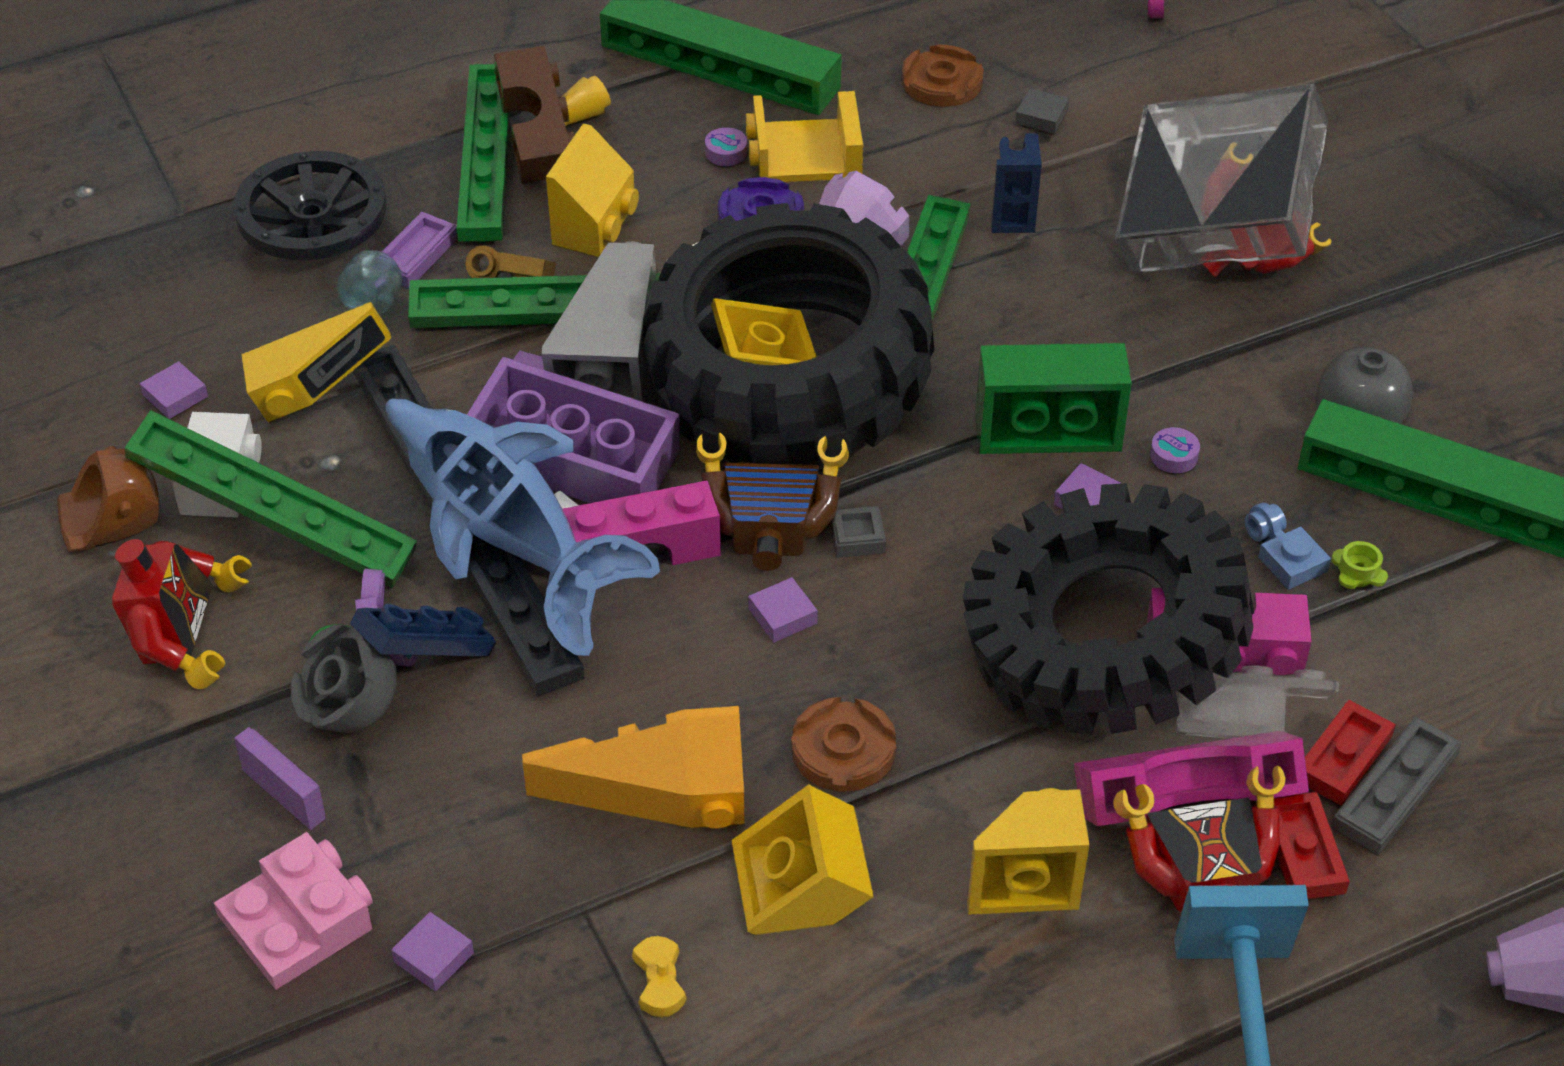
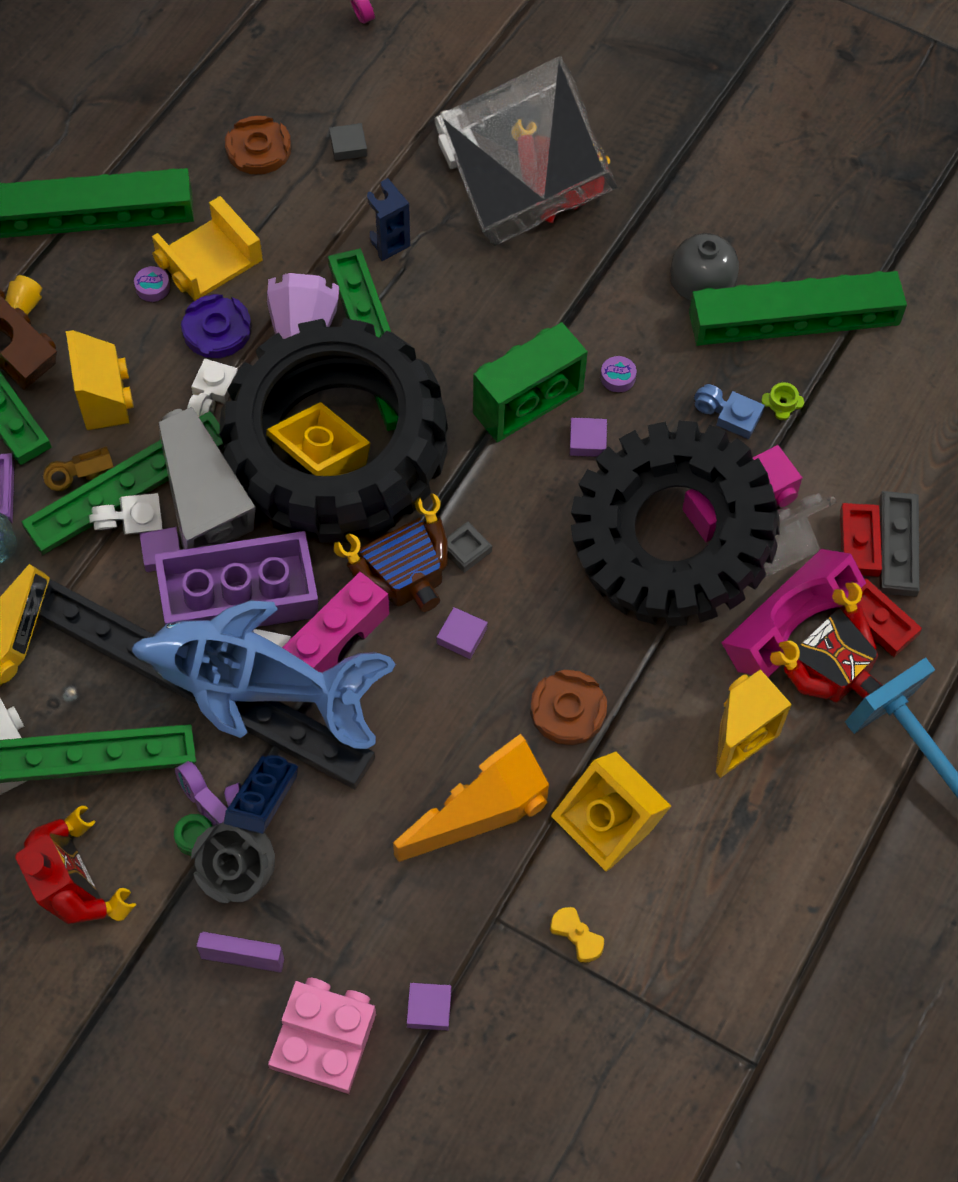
camera: 35 degrees left, 15 degrees up
(526, 330) = (137, 514): none -> white plate

